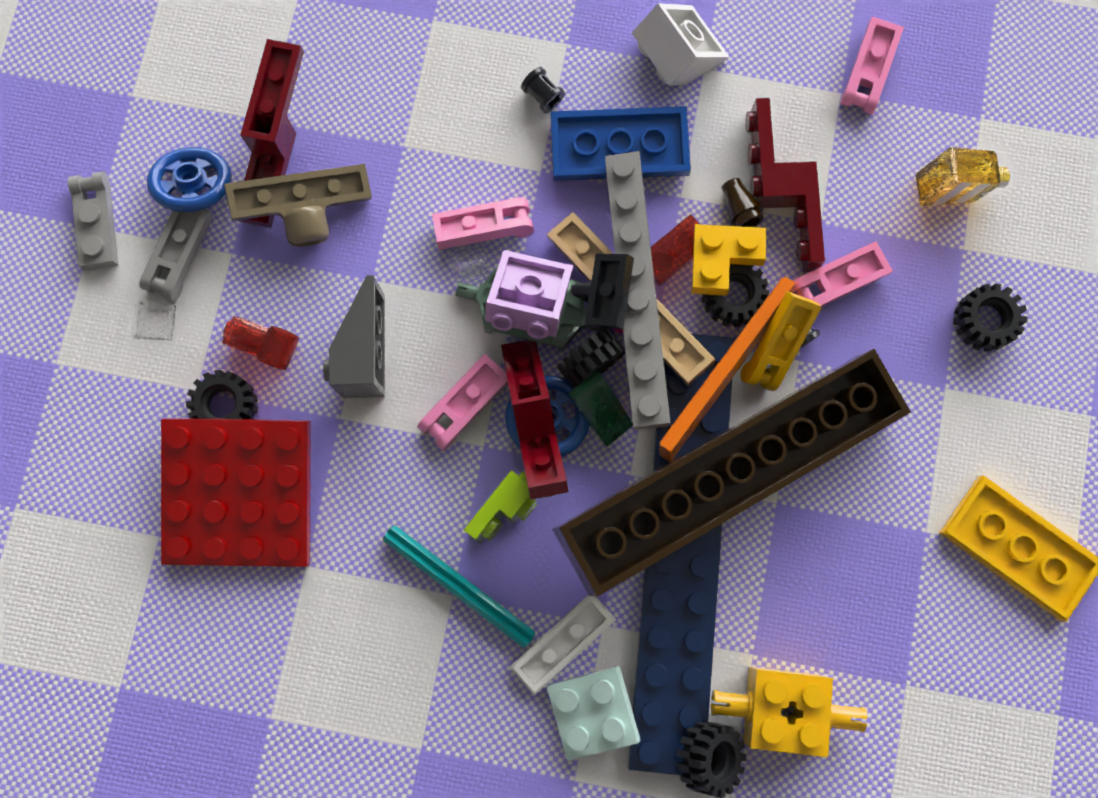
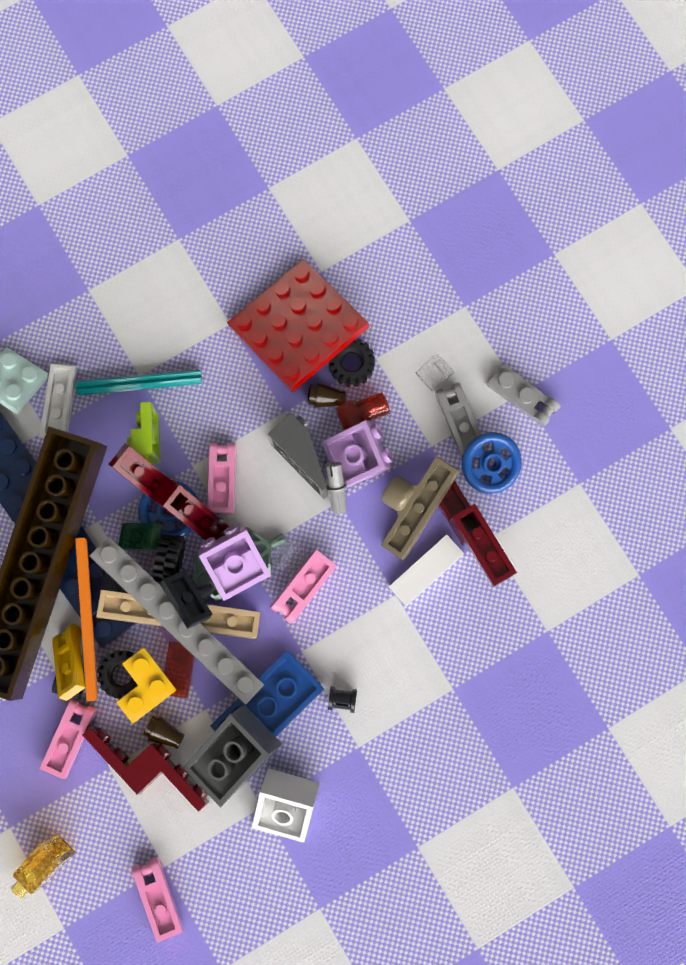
camera: 140 degrees right, 0 degrees up
(284, 394) = (324, 396): none -> dark brown cone
(308, 301) = (359, 452): none -> lavender plate
(352, 139) = (426, 570): none -> white tile
(354, 281) = (336, 487): none -> light grey axle
(691, 117) = (232, 755): none -> dark grey slope

